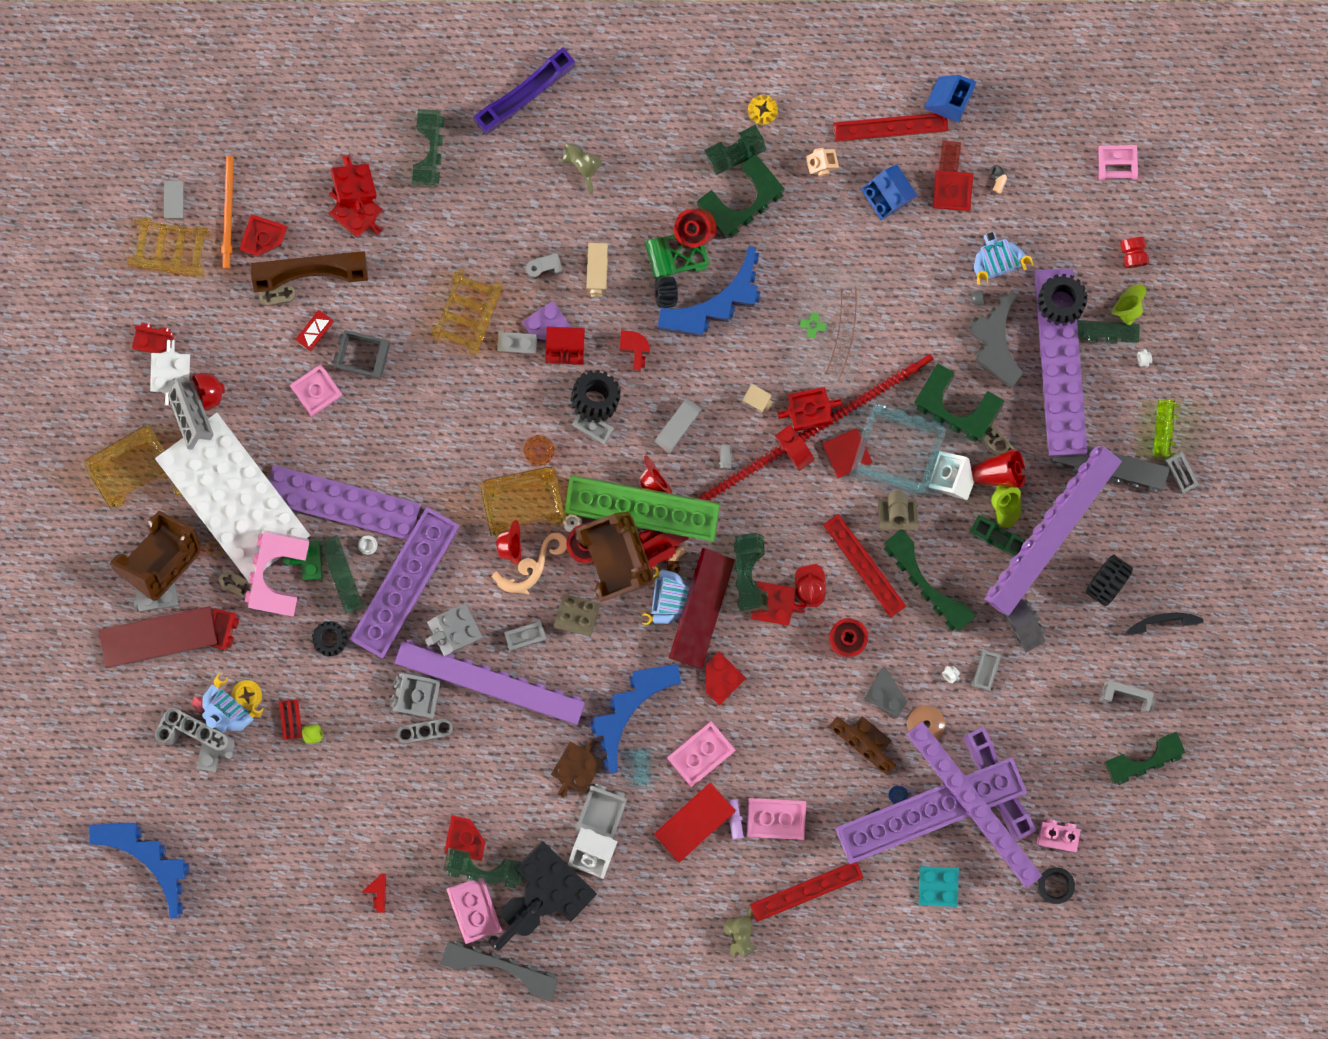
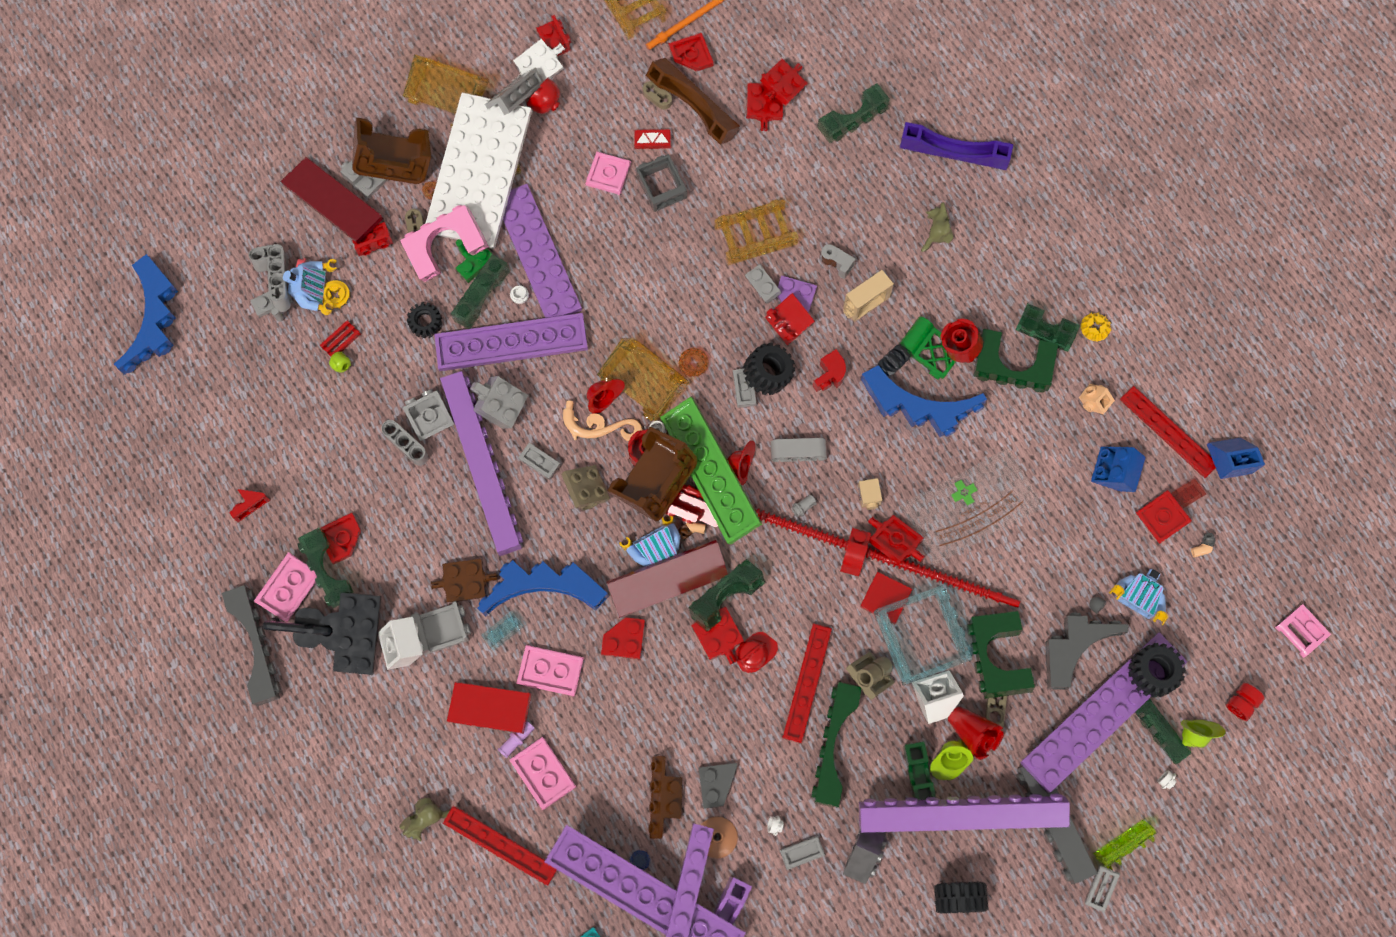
camera: 55 degrees right, 10 degrees down
(851, 627) = (747, 709): red brick -> none

